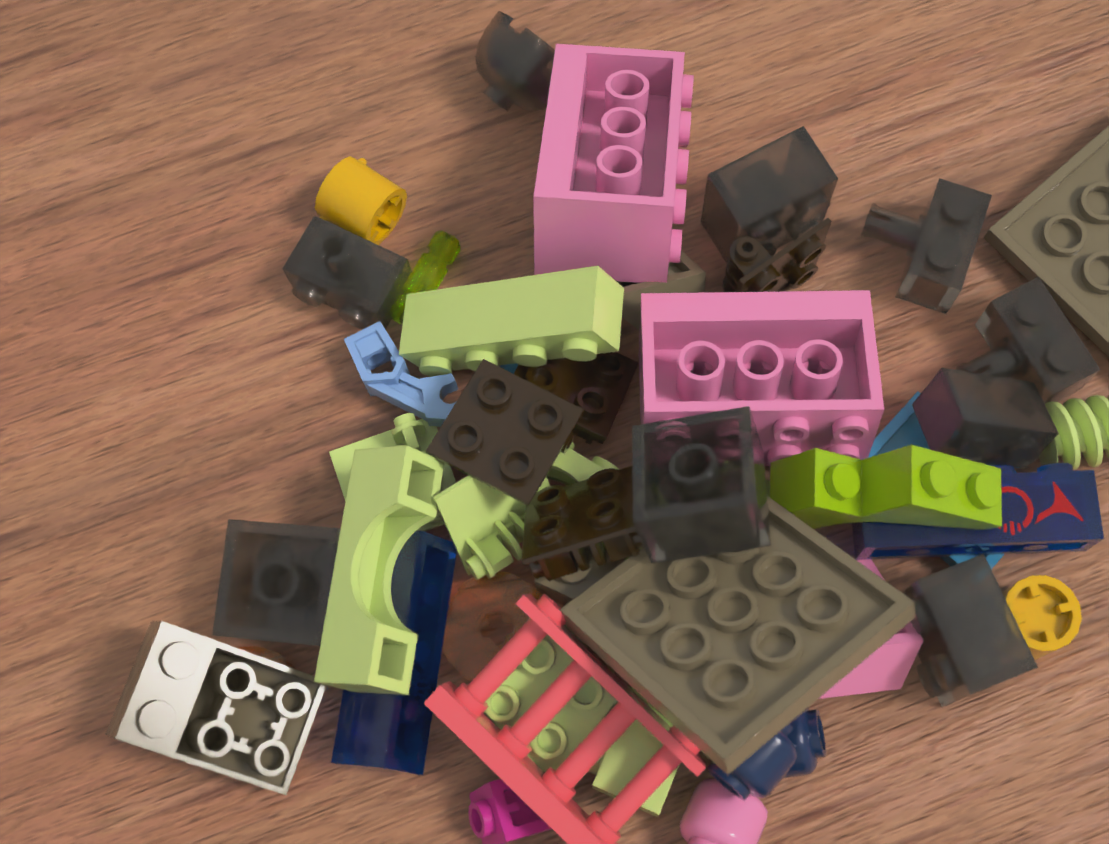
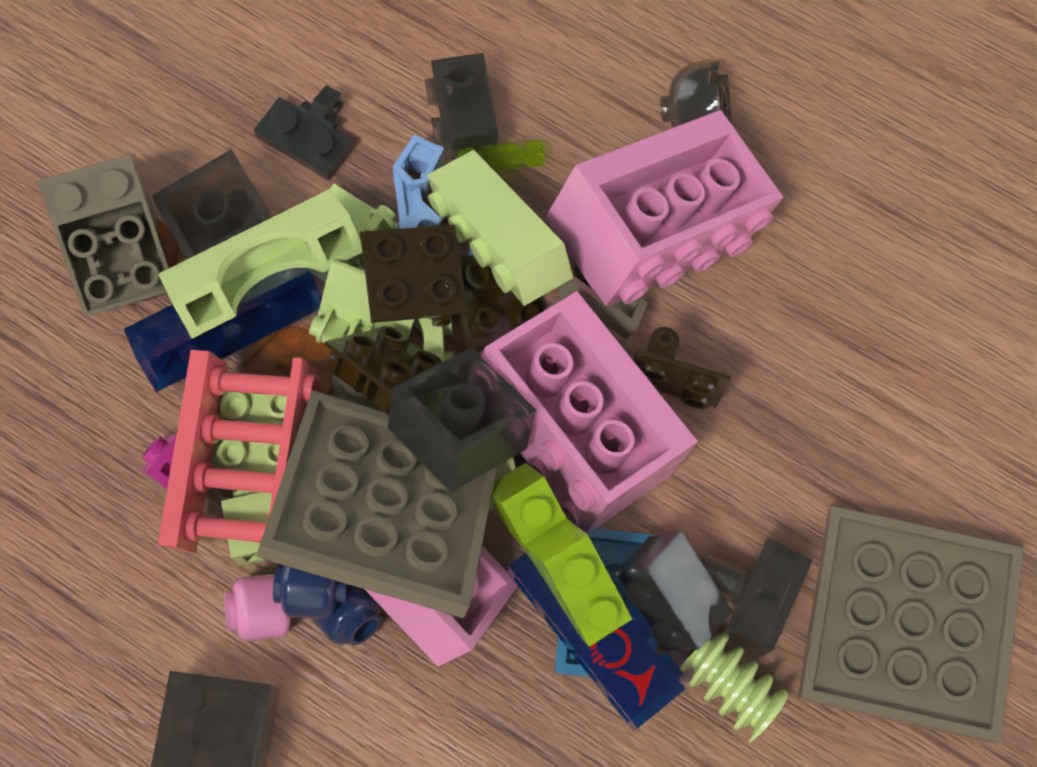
camera: 45 degrees right, 0 degrees up
(253, 440) = (308, 132): none -> pearl dark grey hinge
(360, 200) = (519, 76): yellow piece -> none
(769, 194) = (728, 332): clear smoke brick -> none
(936, 242) = (790, 475): clear smoke brick -> none
(966, 632) = (501, 676): clear smoke brick -> none
(1044, 613) = (555, 725): yellow piece -> none

